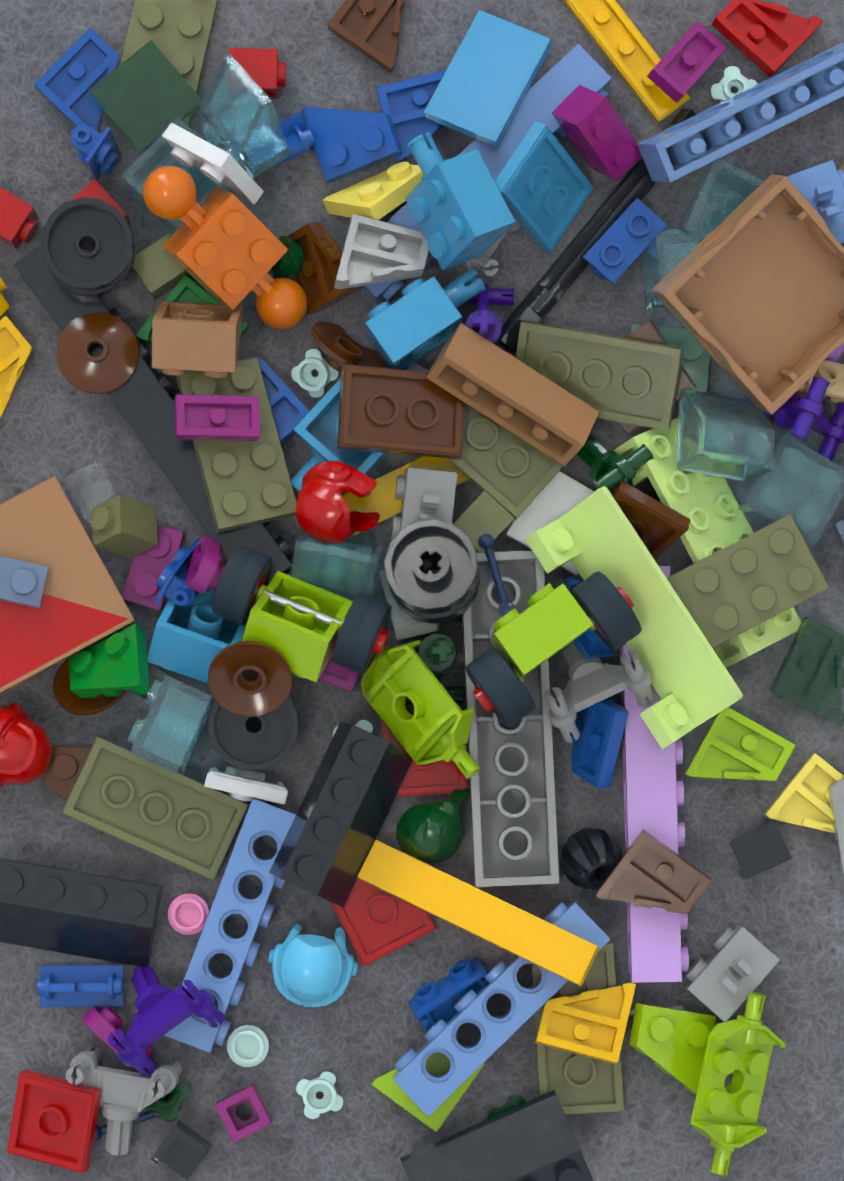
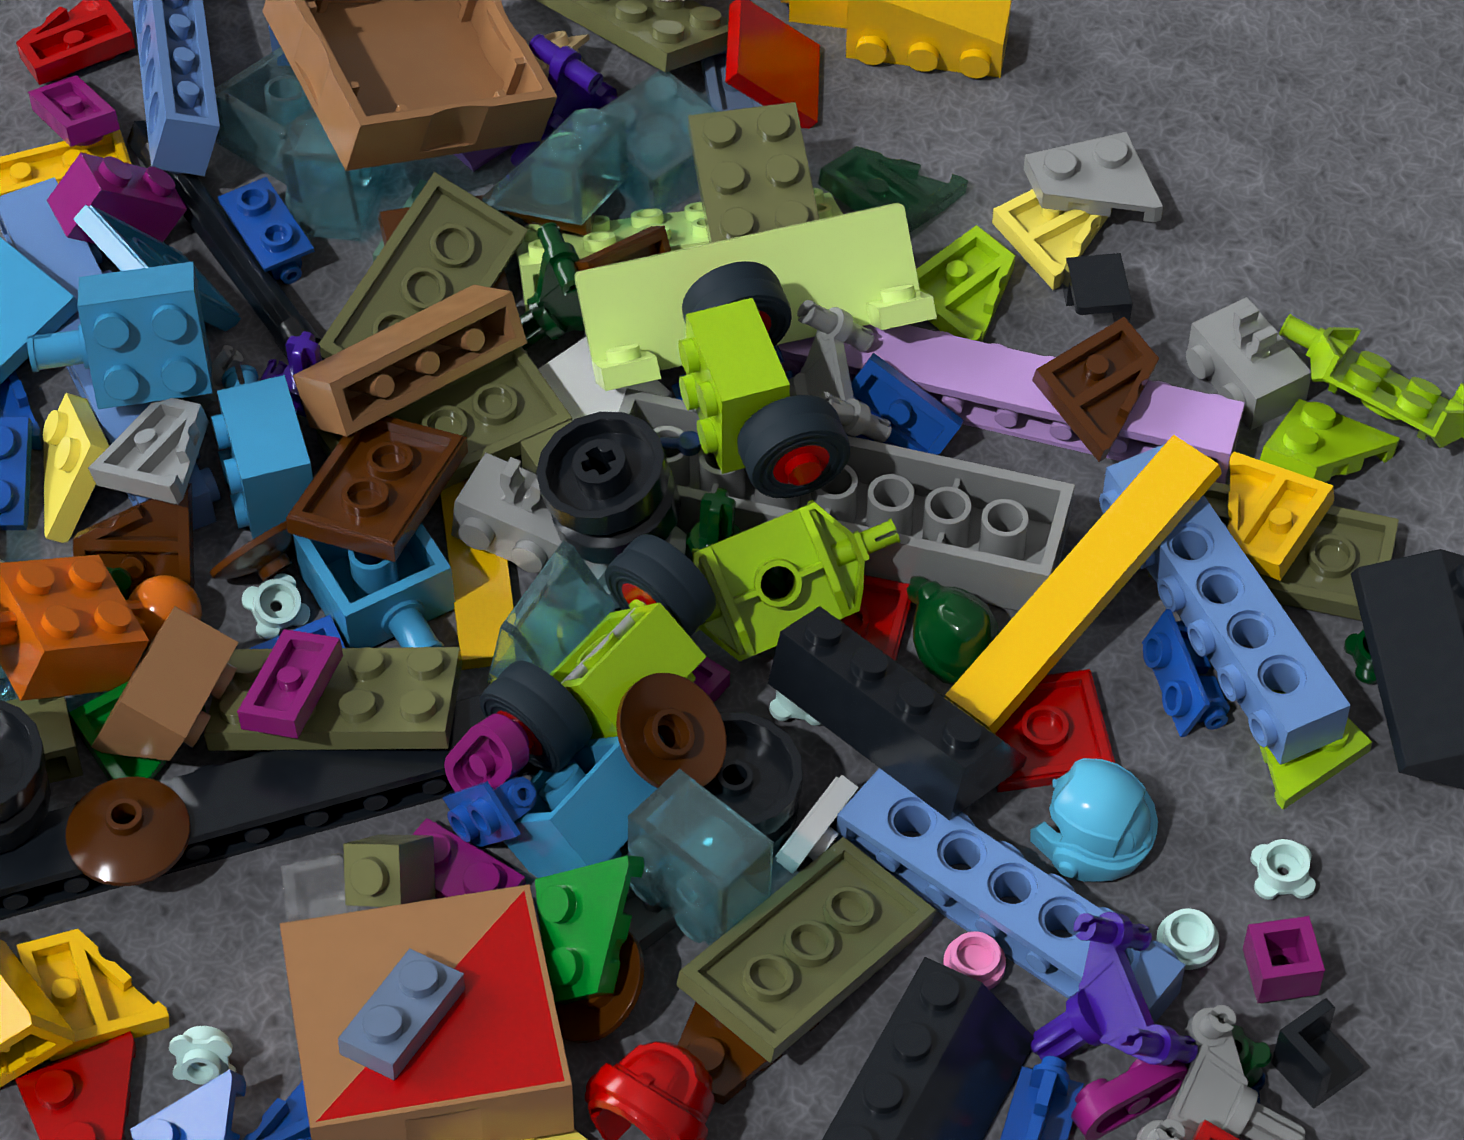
camera: 65 degrees left, 30 degrees down
(324, 512) = (464, 597): red helmet -> none
(590, 857) = (1053, 453): black piece -> none
(731, 79) = (124, 93): light aqua plate -> none

